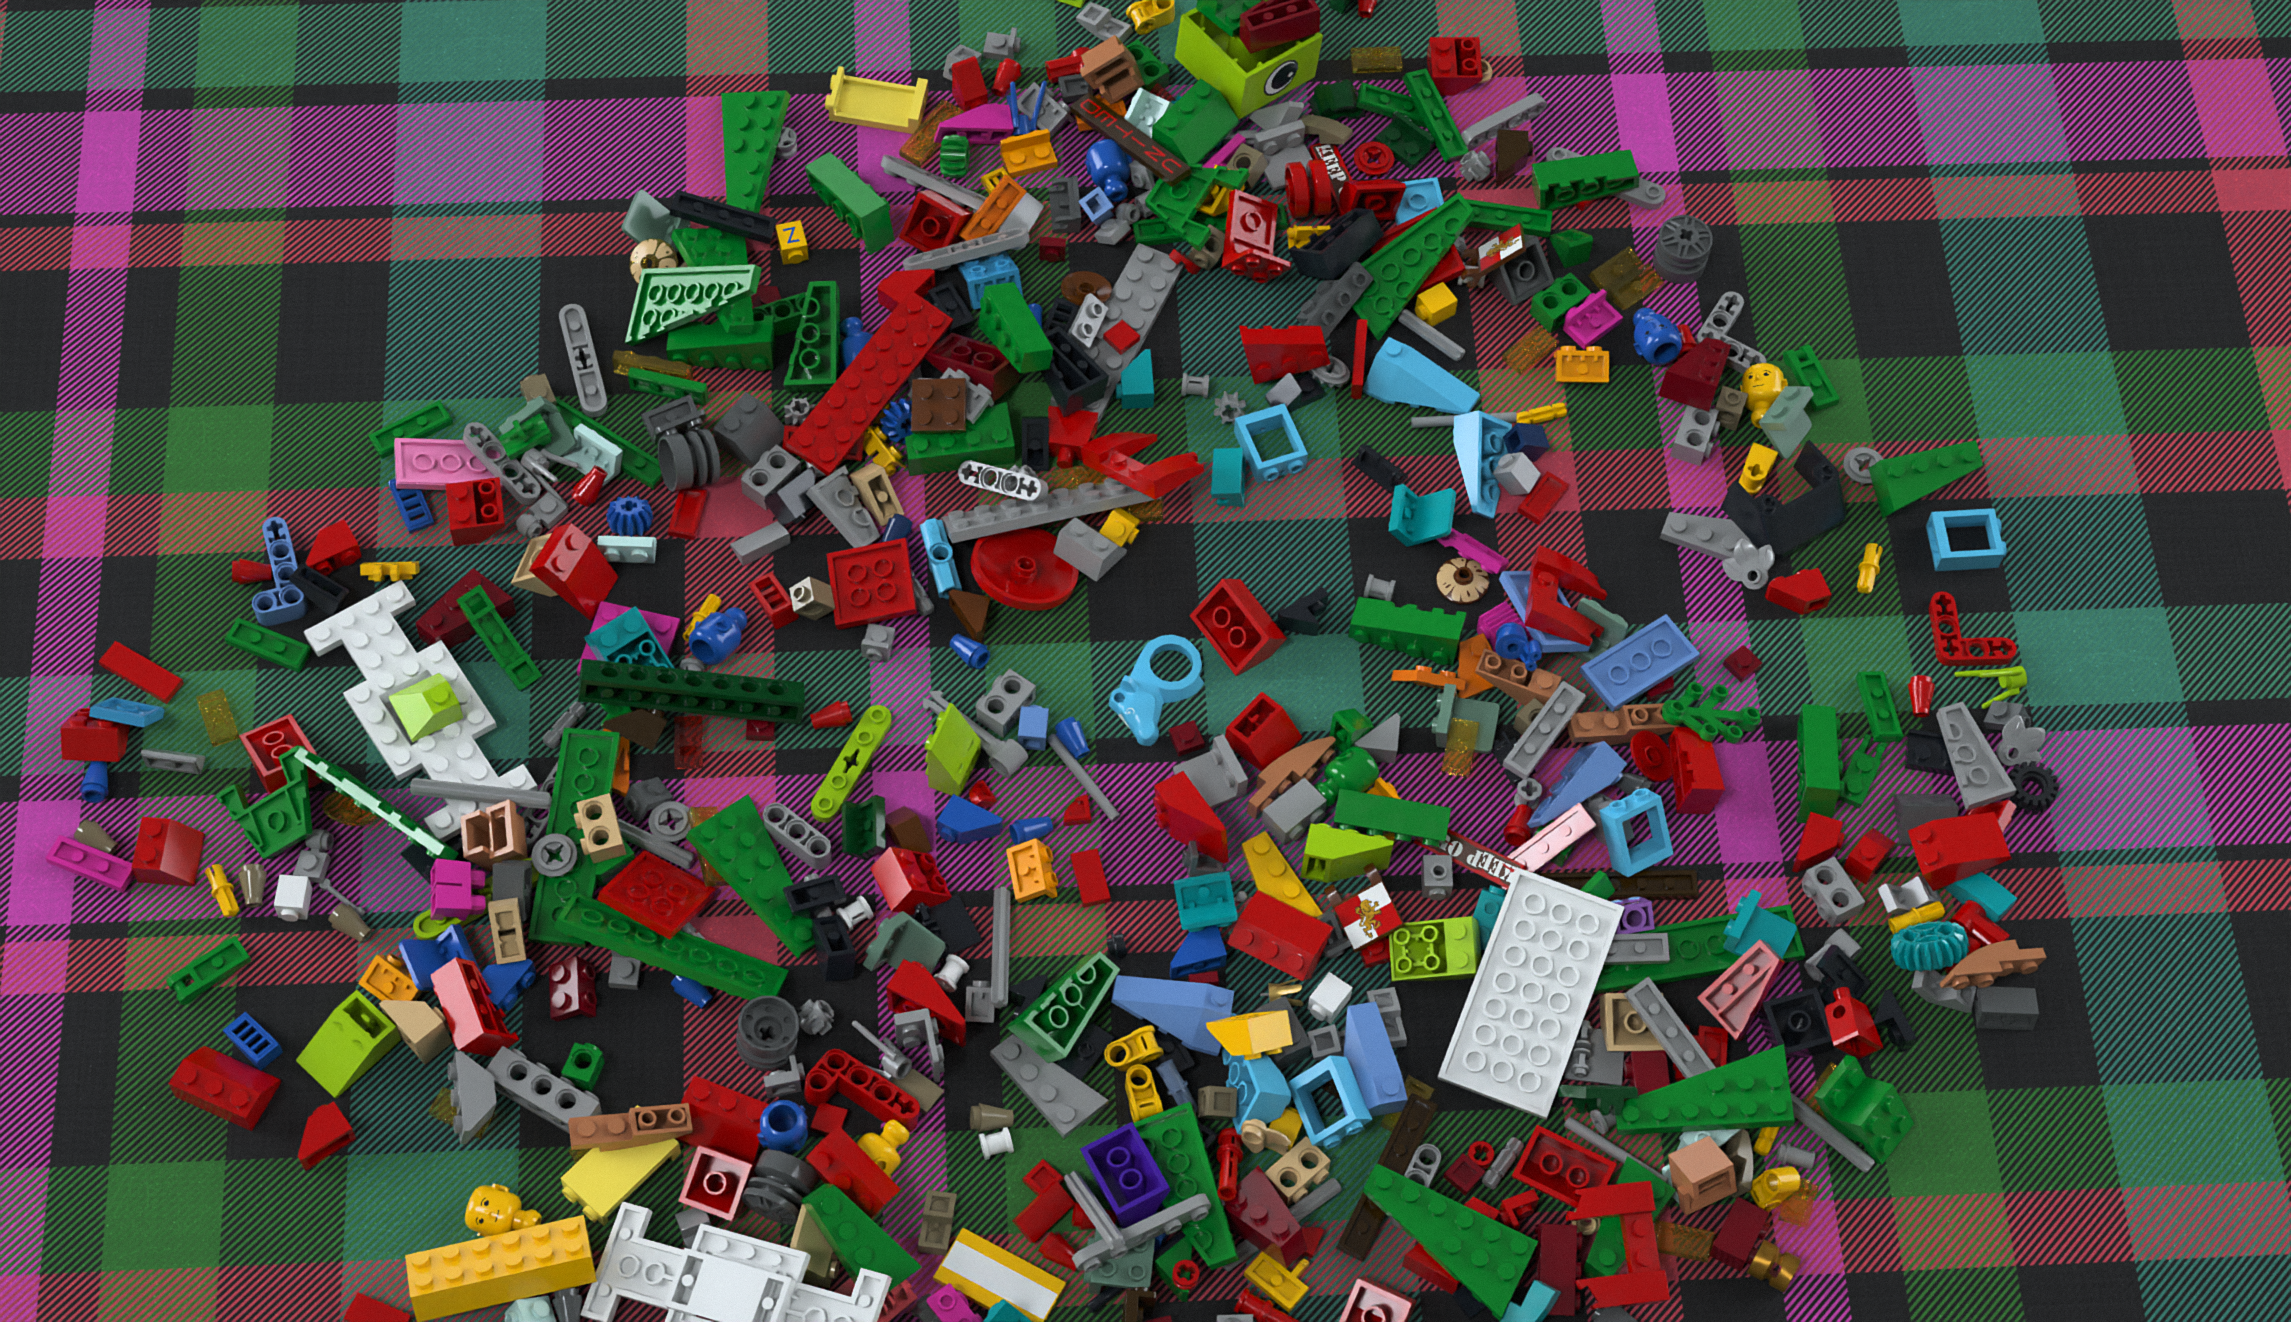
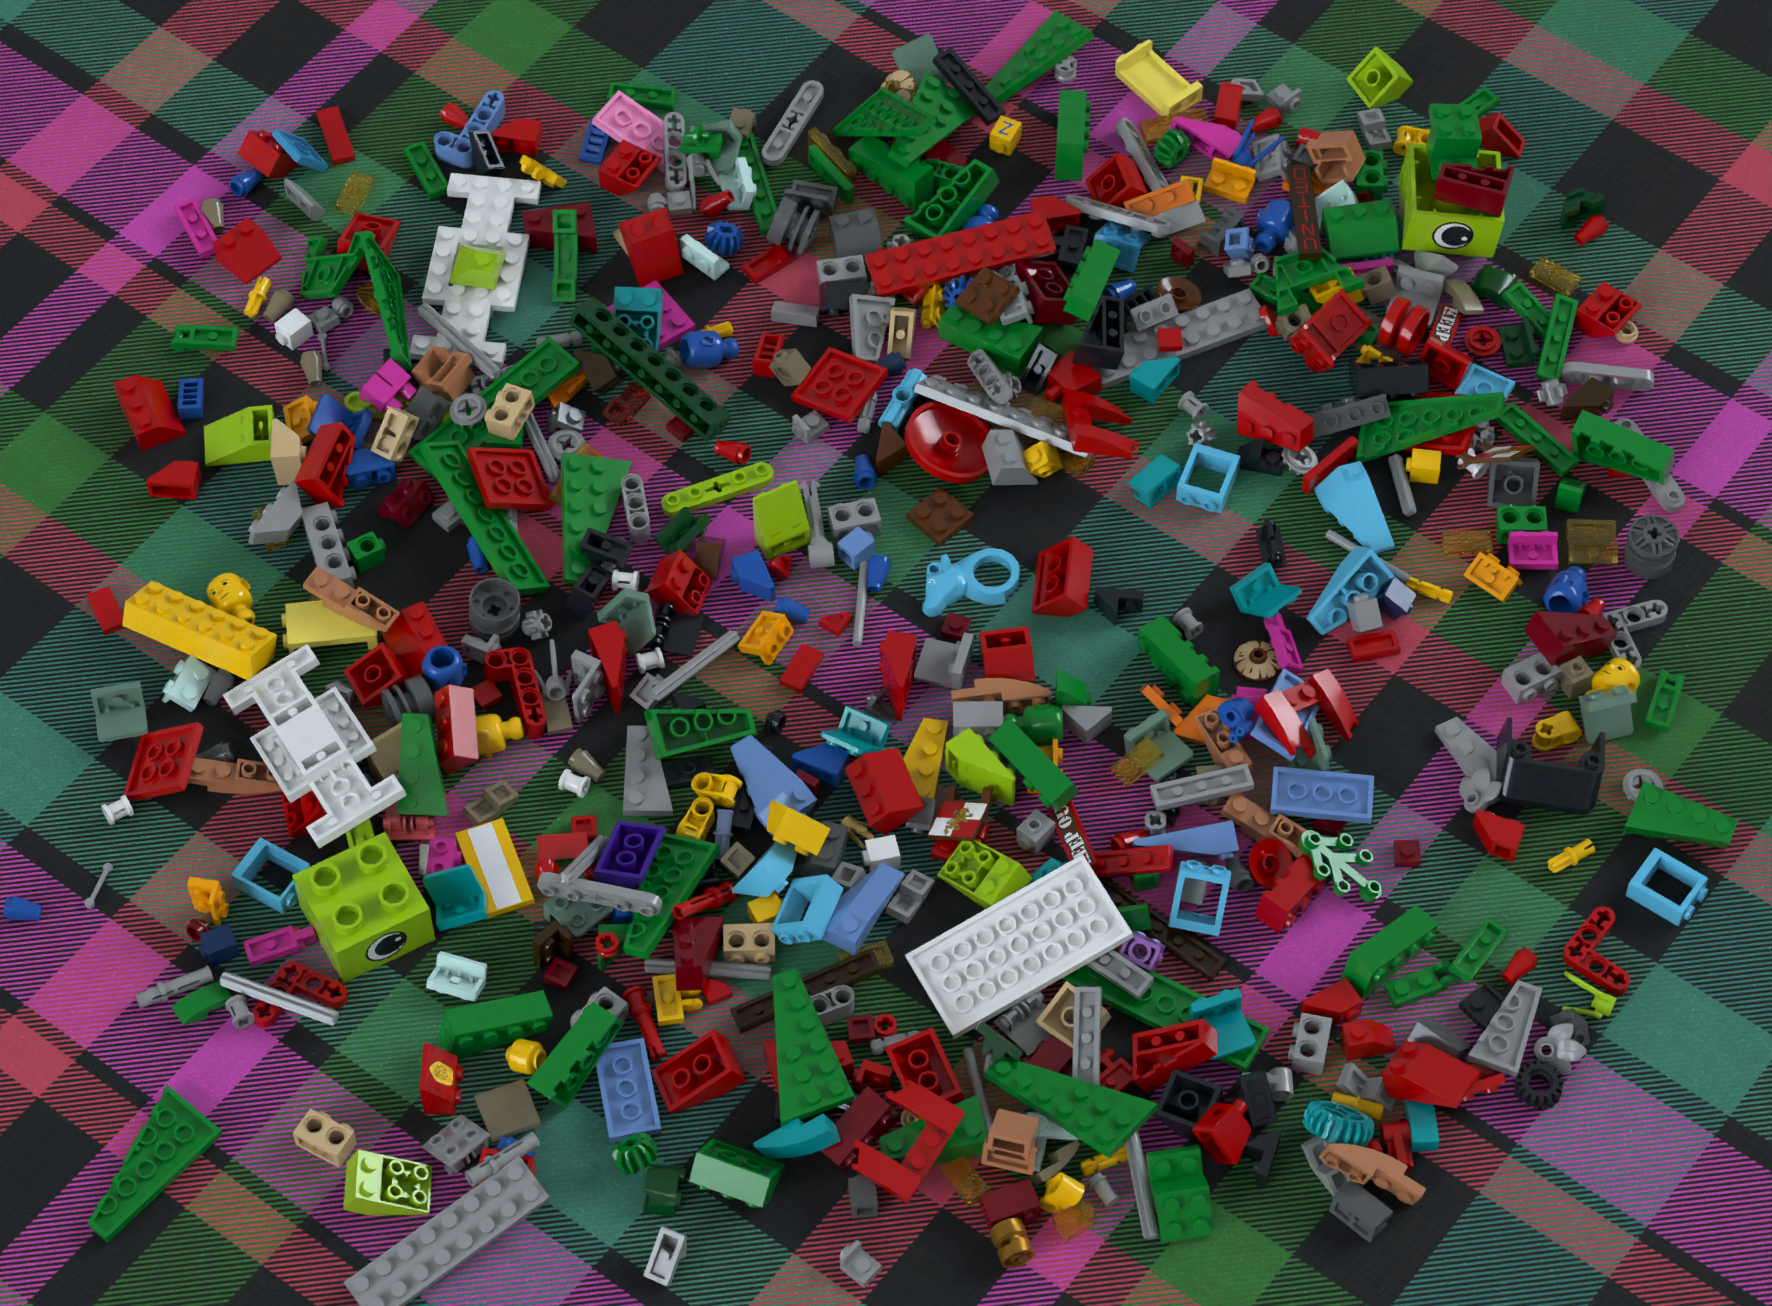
camera: 45 degrees right, 5 degrees down
(1074, 644) = (940, 516): none -> reddish brown plate
(1257, 1135) = (739, 894): tan plate -> none

